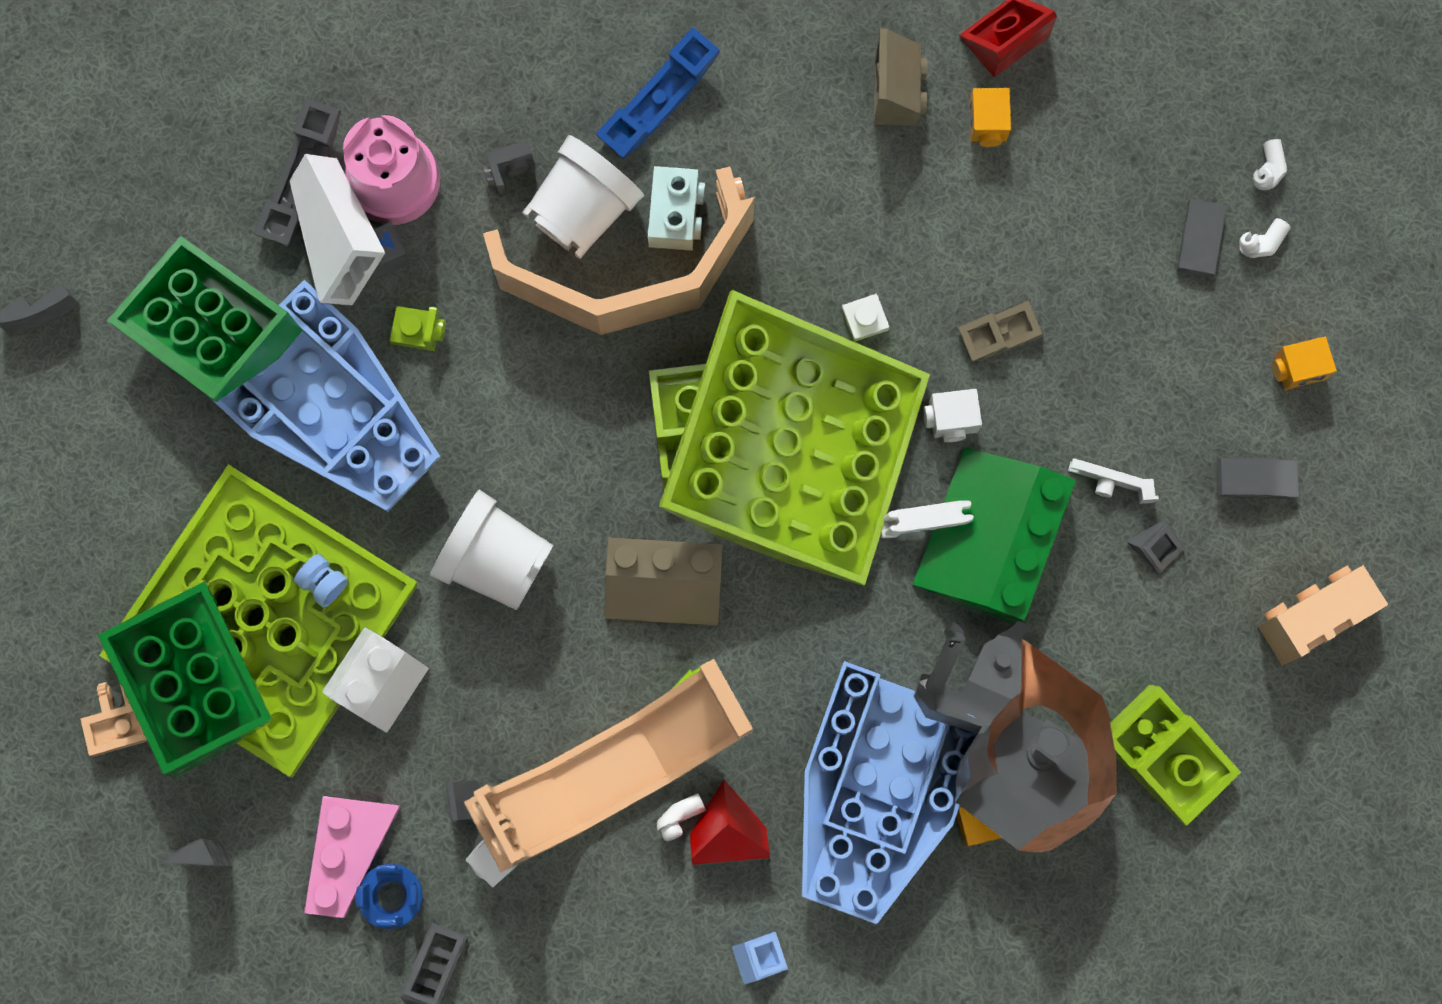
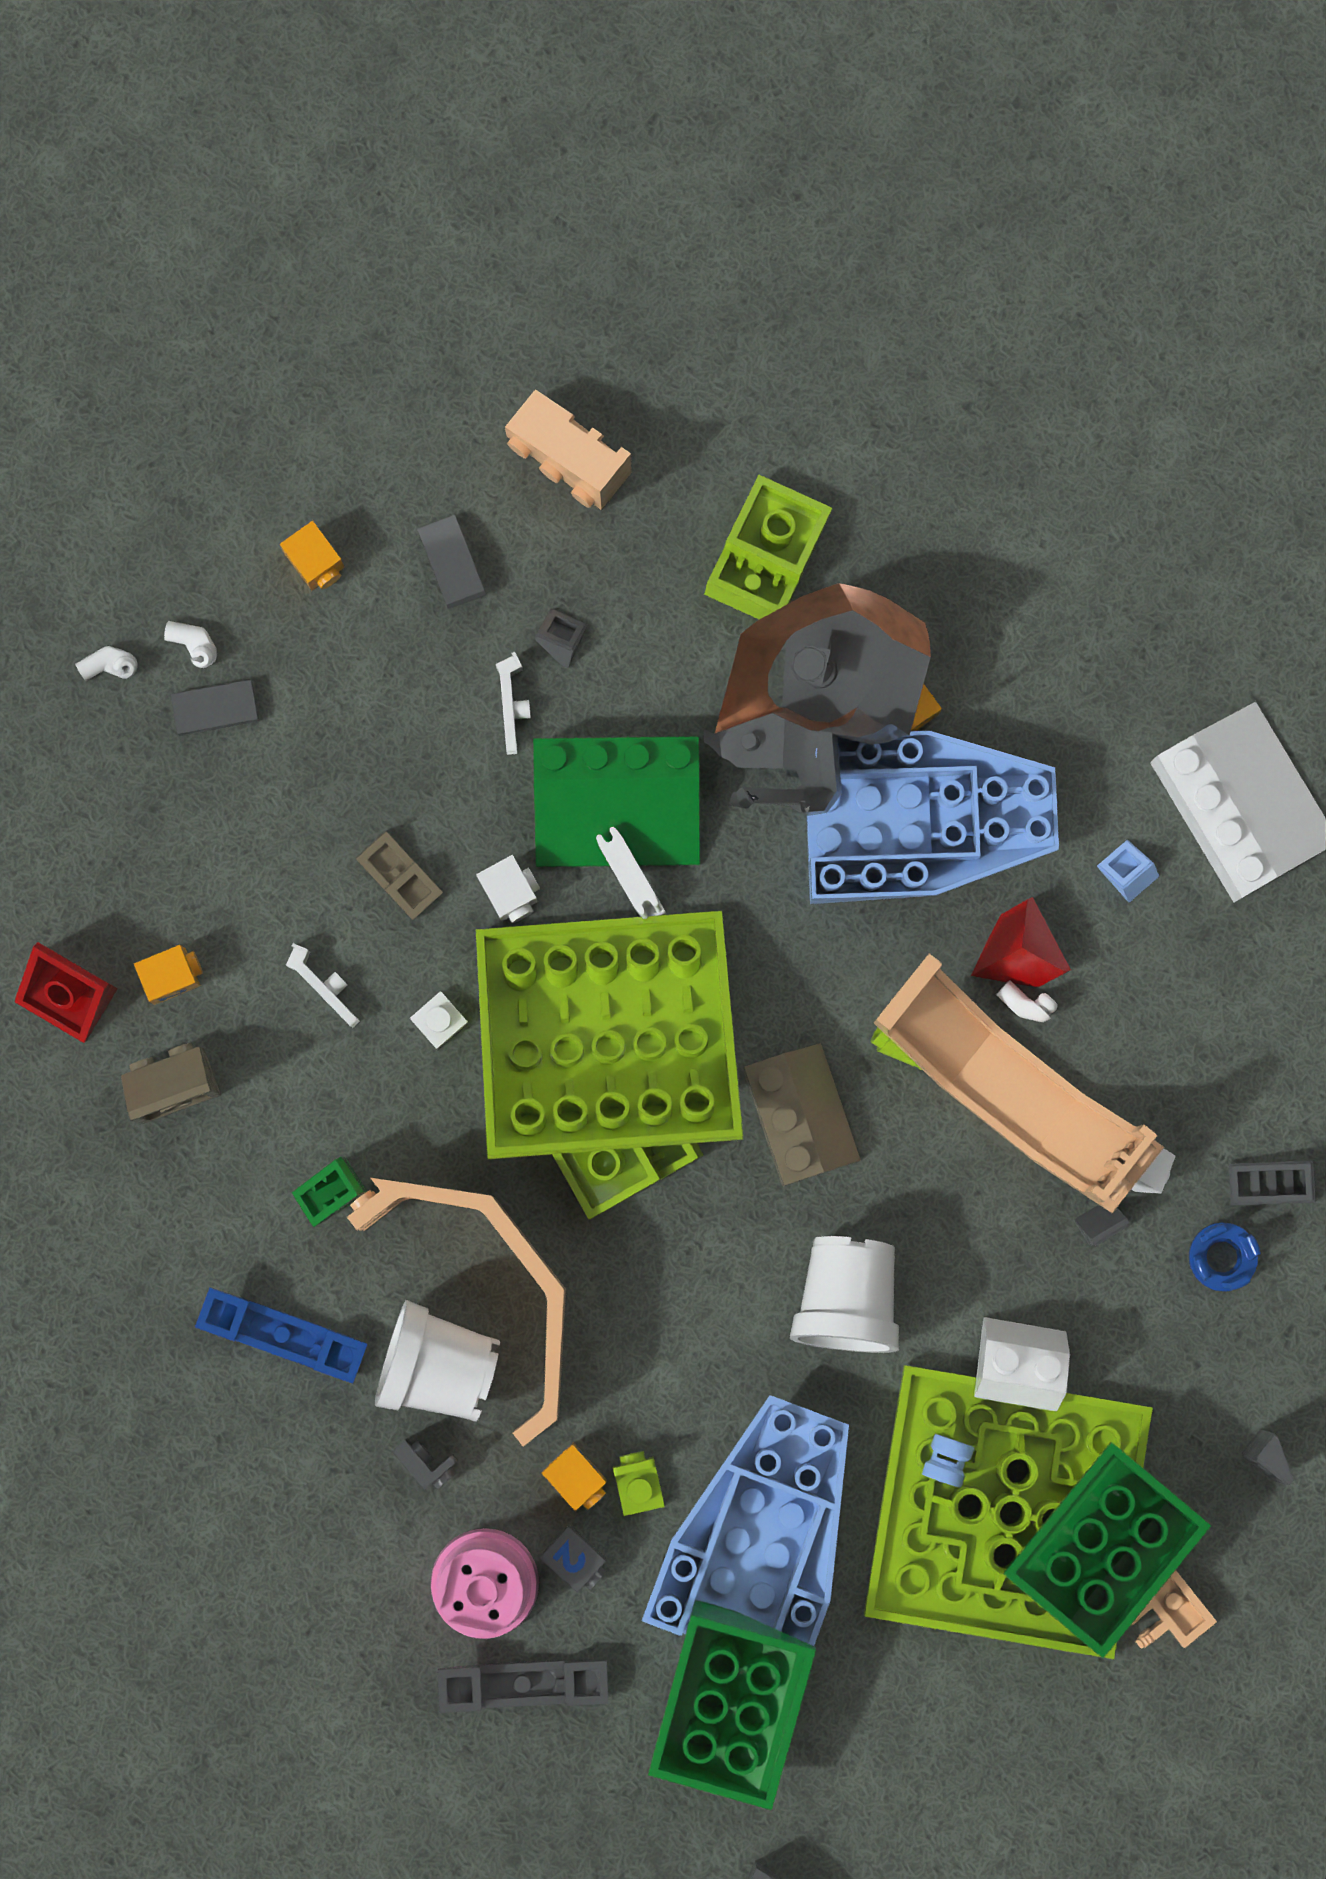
camera: 115 degrees left, 5 degrees up
(334, 230) = (574, 1612): white slope -> none
(343, 852) = (1199, 1321): bright pink wing -> none
(443, 278) = (575, 1478): none -> light orange brick
(673, 208) = (401, 1265): light aqua brick -> none
(760, 177) = (329, 1191): none -> green slope
(926, 236) = (328, 989): none -> white piece

